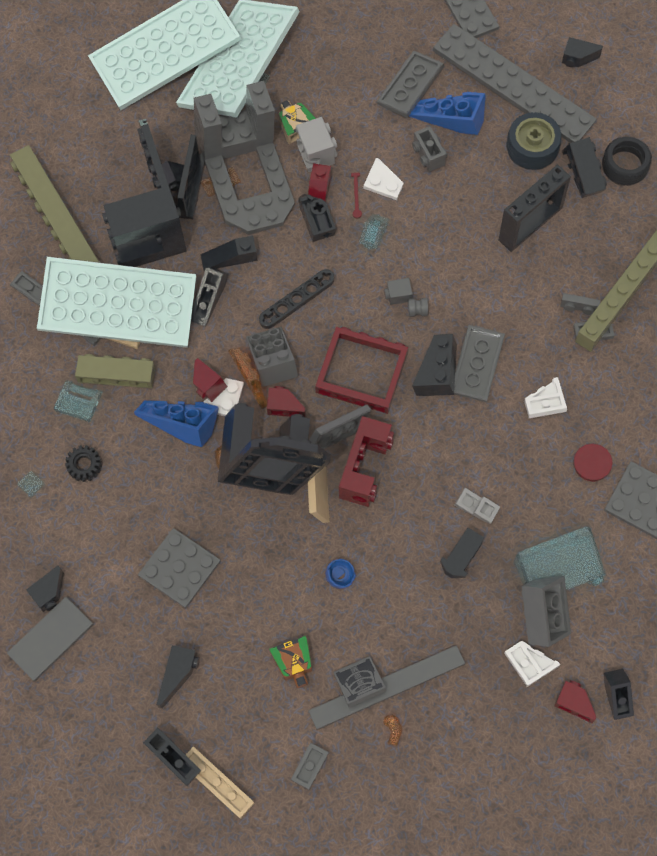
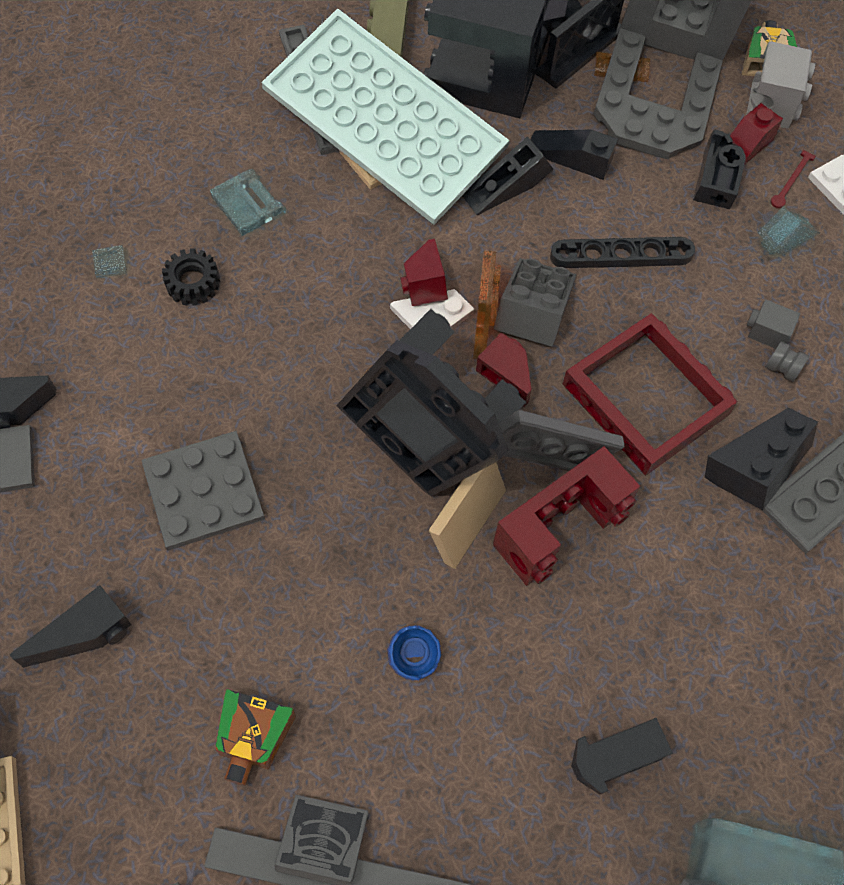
camera: 30 degrees right, 5 degrees down
(115, 371) = (320, 195): olive brick -> none
(186, 422) = (358, 309): blue wedge -> none
(477, 506) = (693, 698): light grey slope -> none

